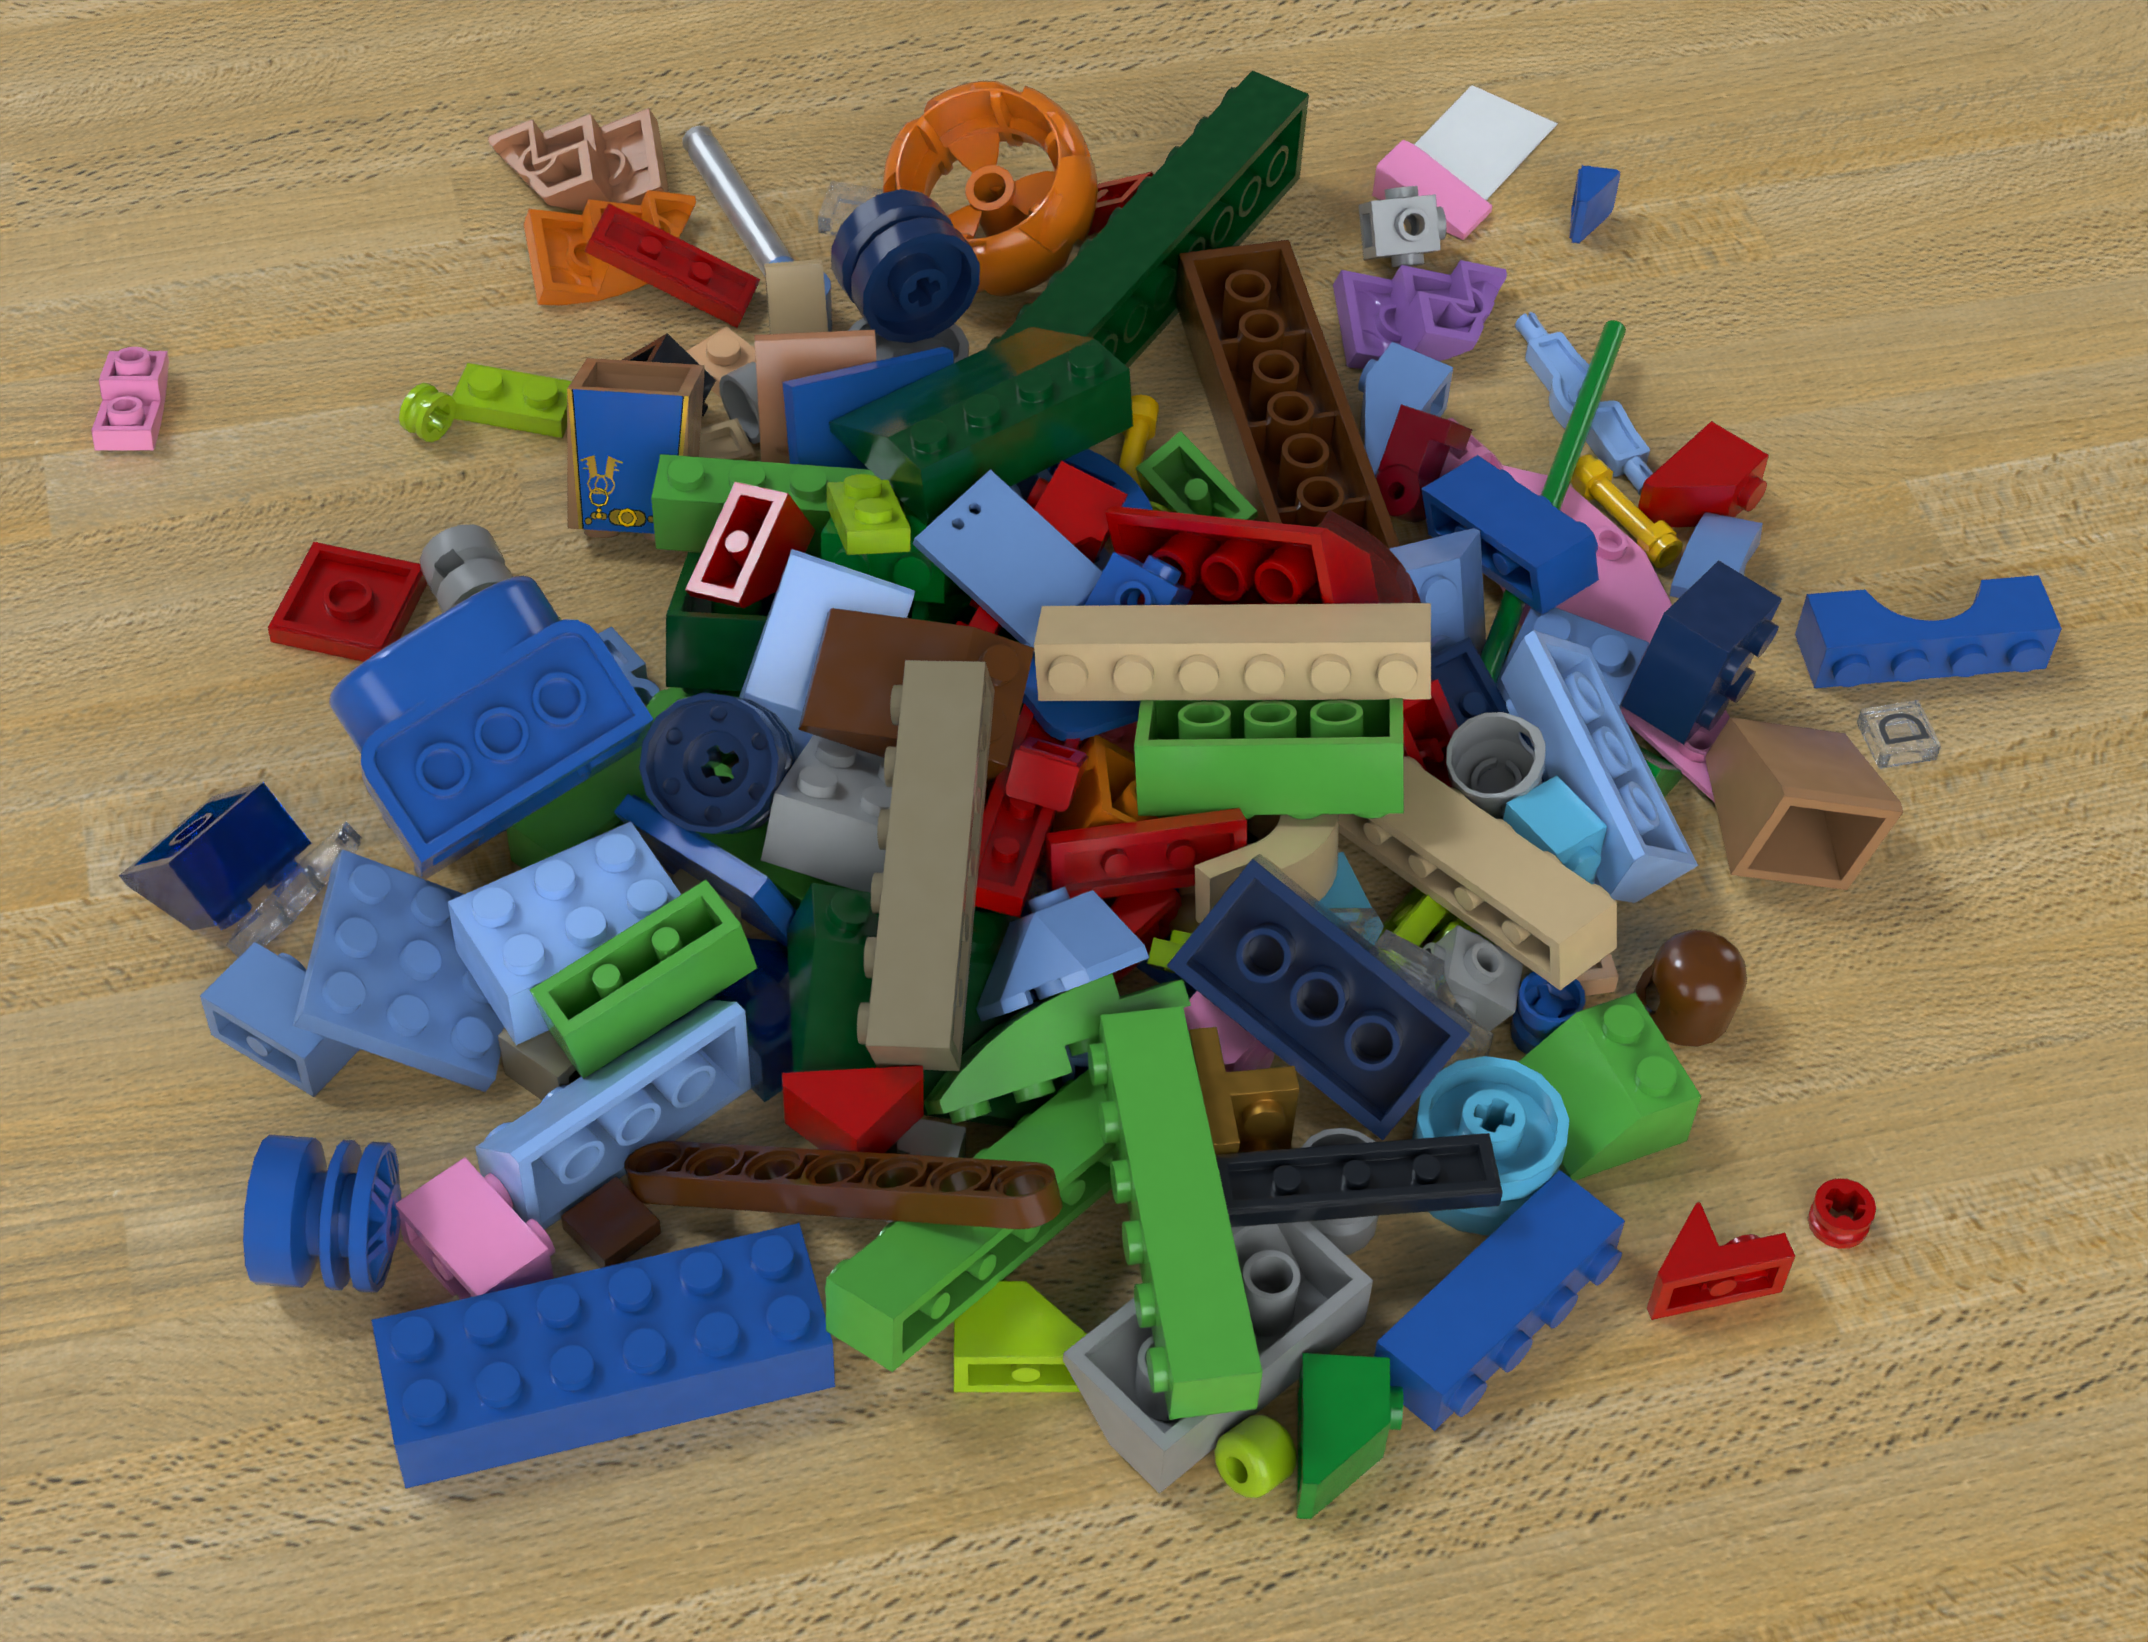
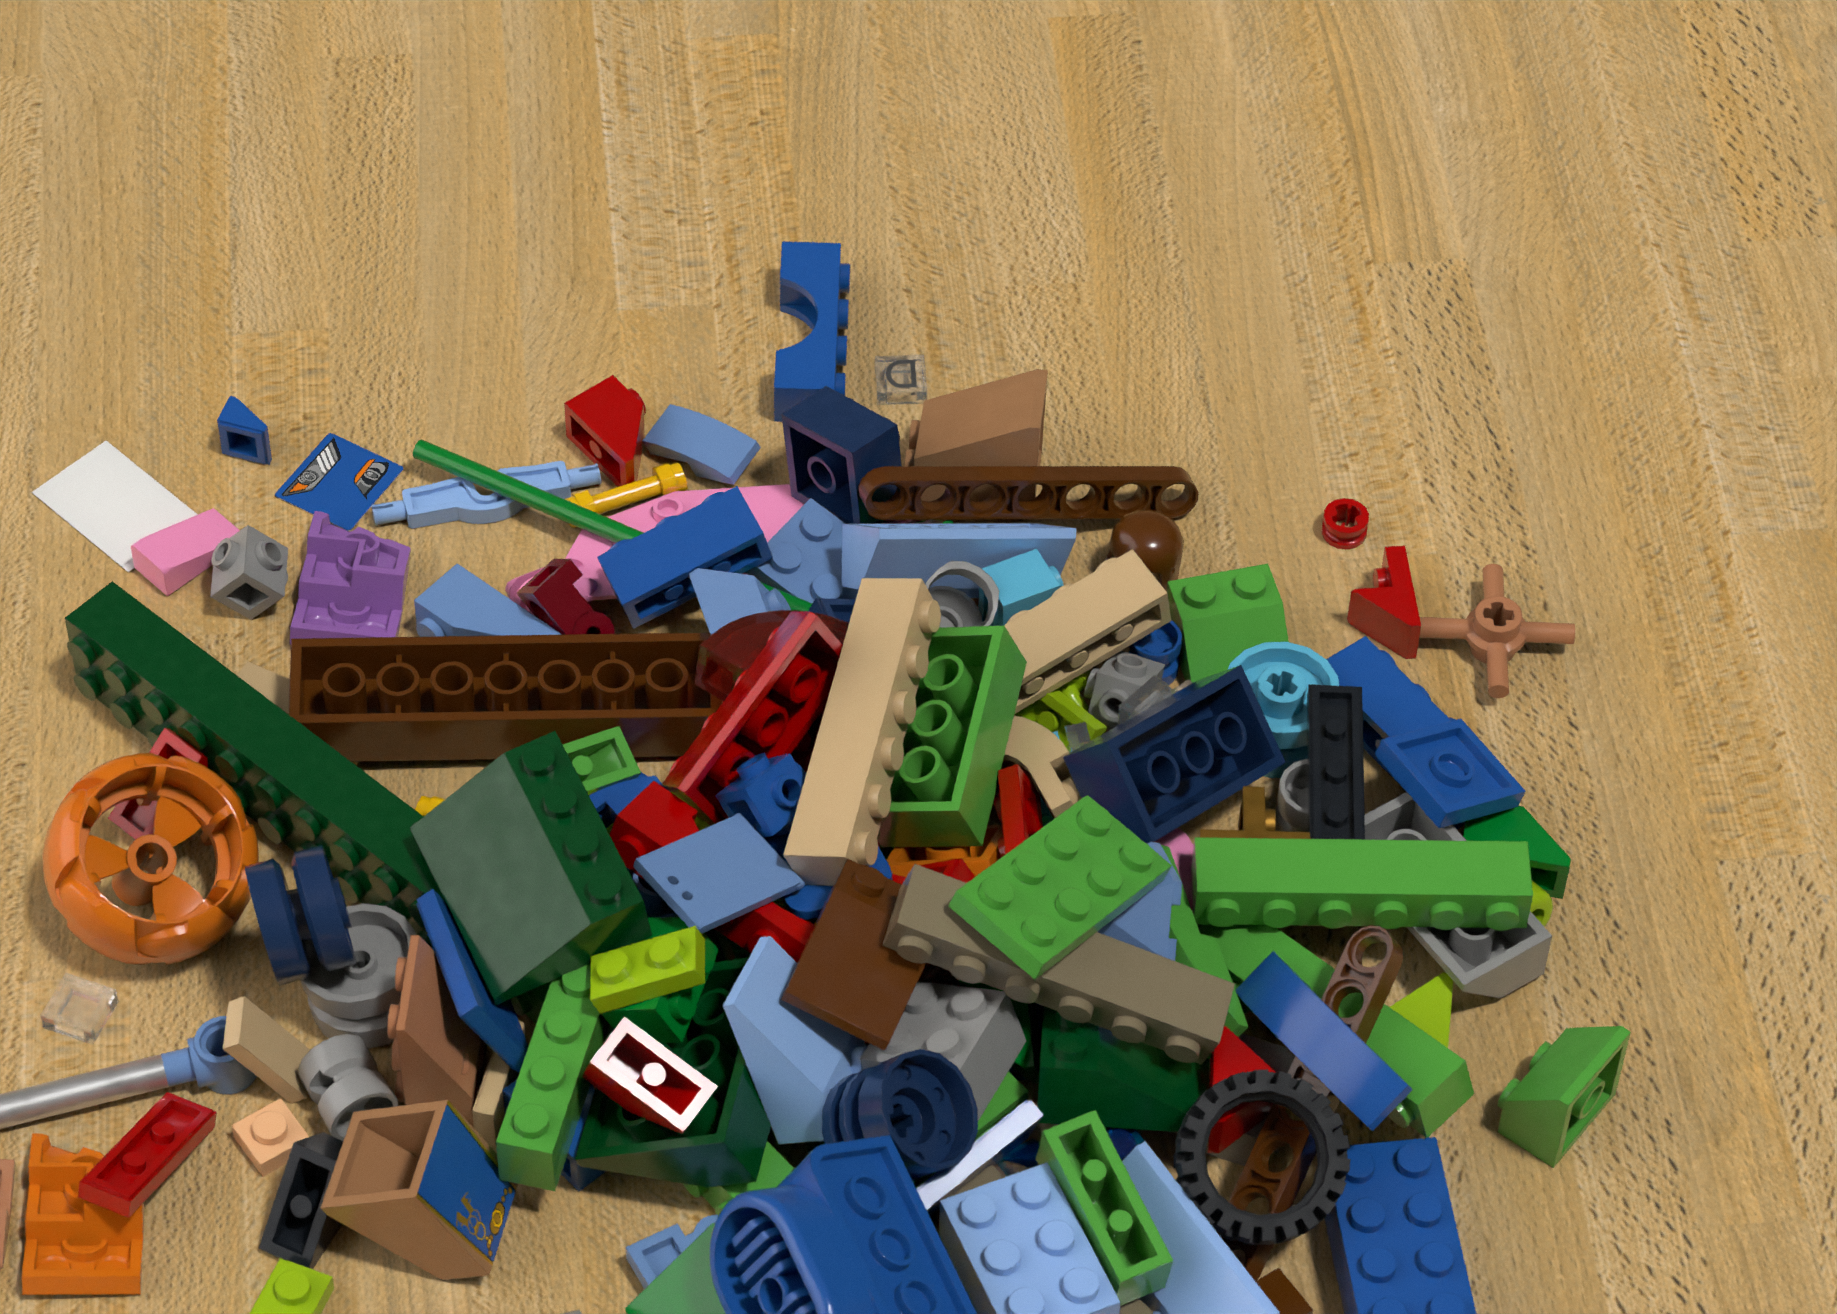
camera: 80 degrees left, 0 degrees up
(786, 1168) = (1320, 1121): none -> black tyre
(854, 1199) = (1323, 1041): none -> blue slope
(947, 1507) = (1563, 1090): none -> bright green slope
(1011, 823) = (1060, 886): none -> bright green plate
(1392, 1307) = (1449, 773): none -> blue plate
(1567, 294) = (339, 481): none -> blue sticker
(1707, 1393) = (1496, 630): none -> nougat bar
(1750, 857) = (1011, 480): none -> reddish brown beam

